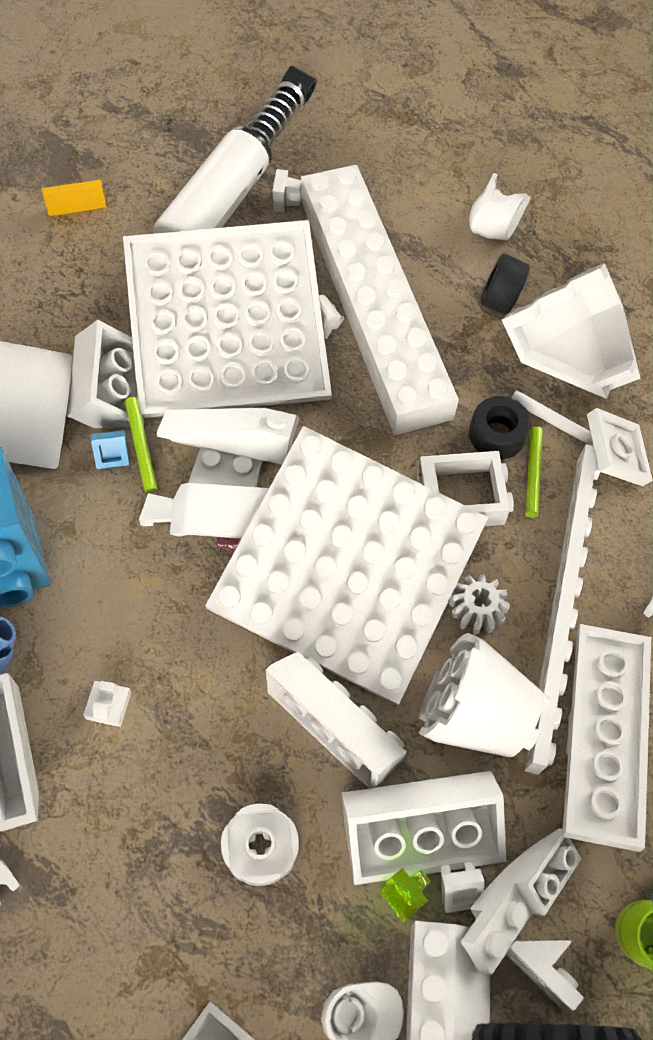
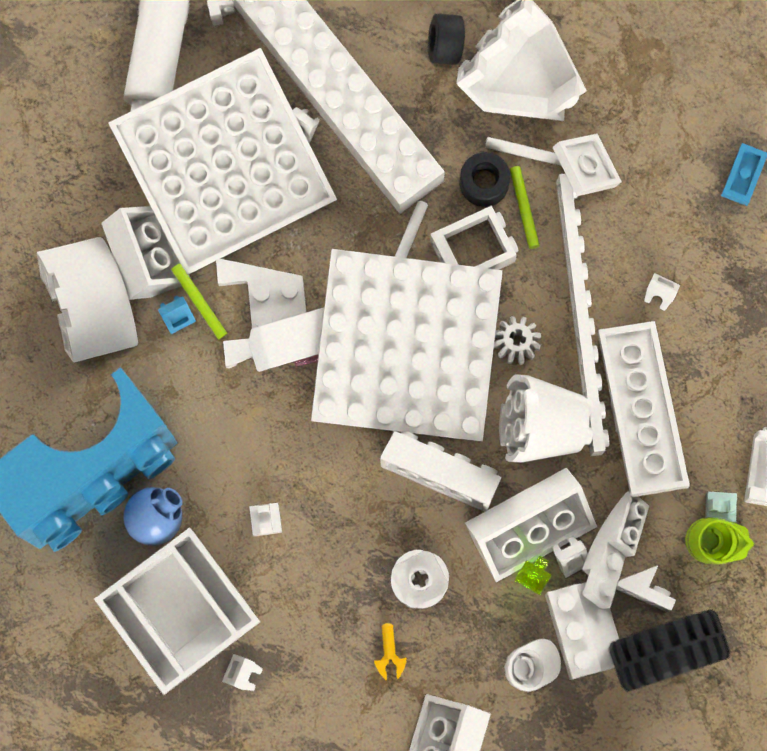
camera: 15 degrees left, 15 degrees up
(74, 197) = (33, 81): yellow tile -> none
(185, 928) = (389, 653): none -> yellow bar
(239, 431) = (280, 259): white wedge -> none
(406, 448) = (411, 229): none -> white bar

